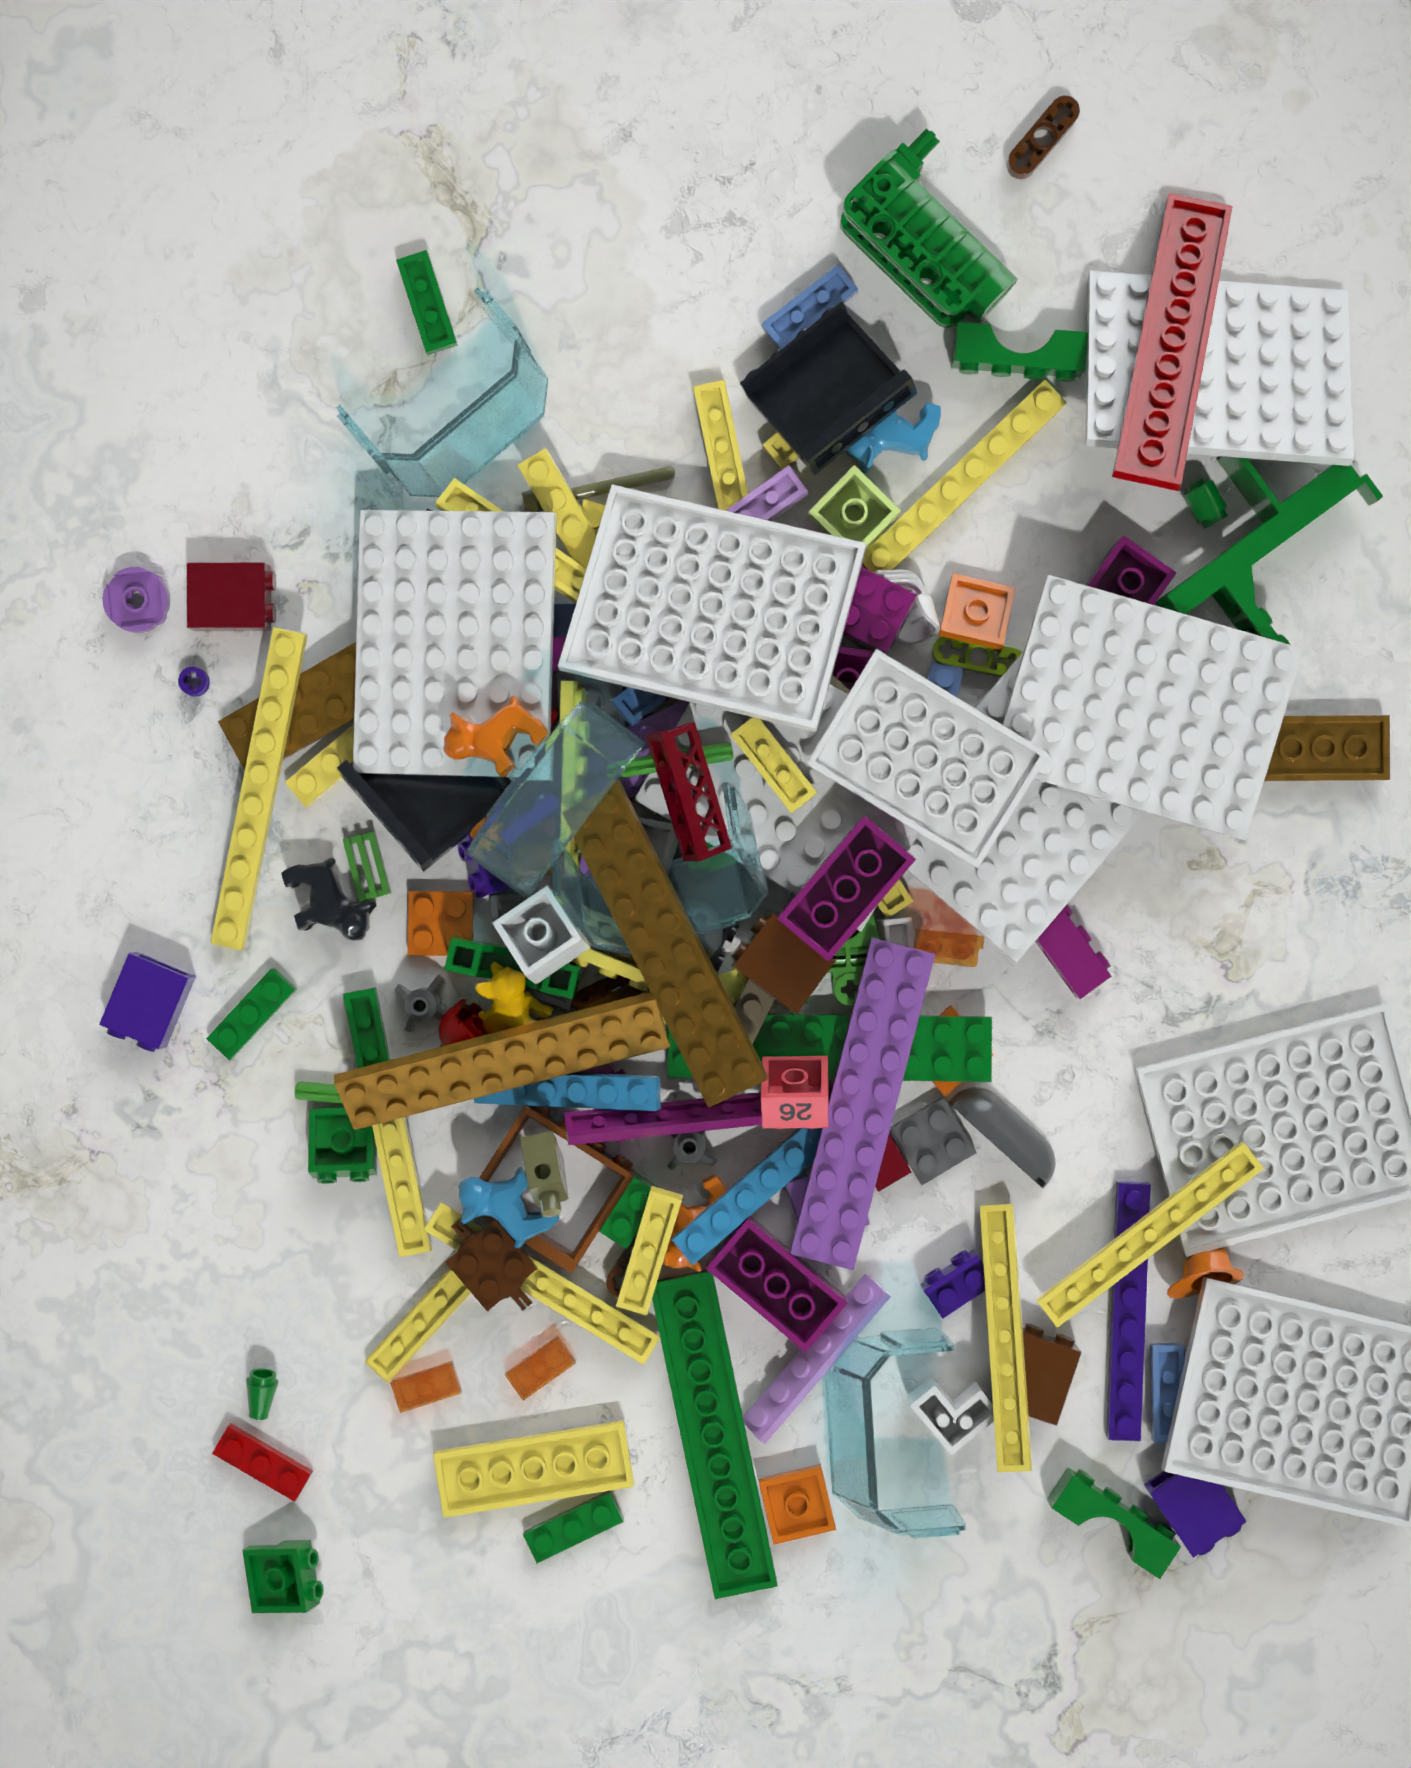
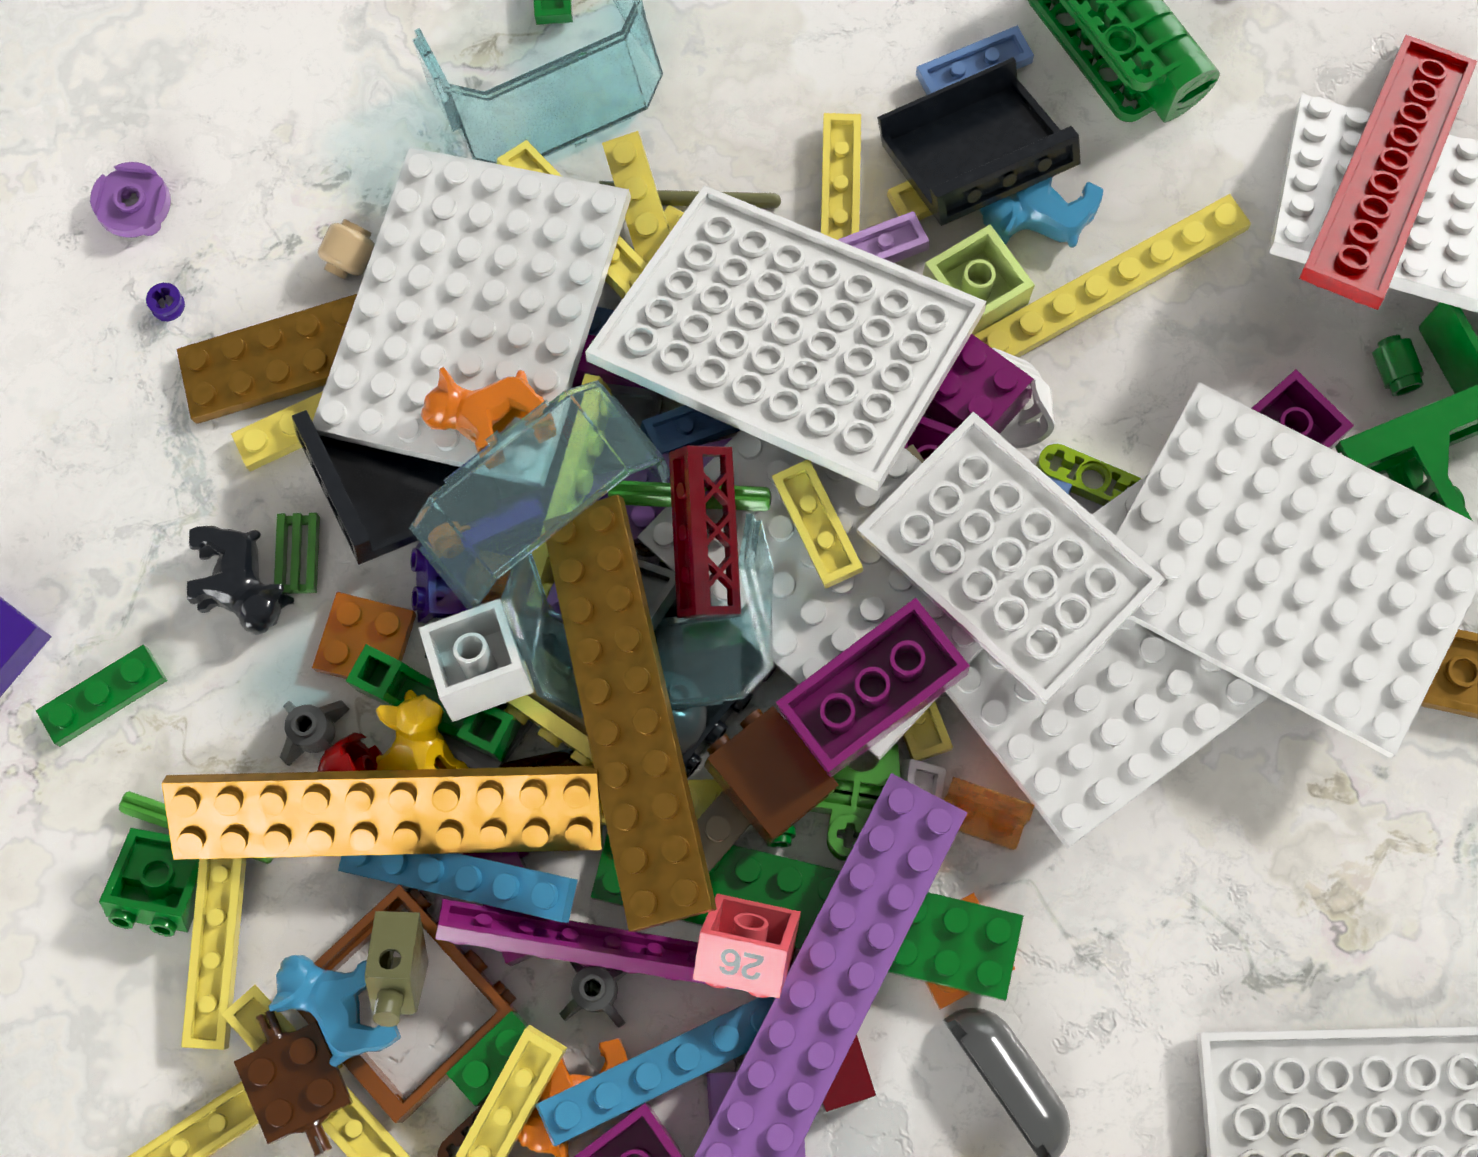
camera: 15 degrees right, 15 degrees down
(230, 596) = (235, 218): dark red brick -> none
(259, 788) = (194, 433): light yellow plate -> none
(329, 603) = (346, 249): none -> tan head
(366, 1027) = (235, 734): green plate -> none
(932, 1140) = (912, 1065): flat silver plate -> none
(977, 611) = (1101, 424): orange plate -> none
(978, 349) = (1162, 148): green arch -> none
(1072, 956) = (1141, 860): magenta brick -> none

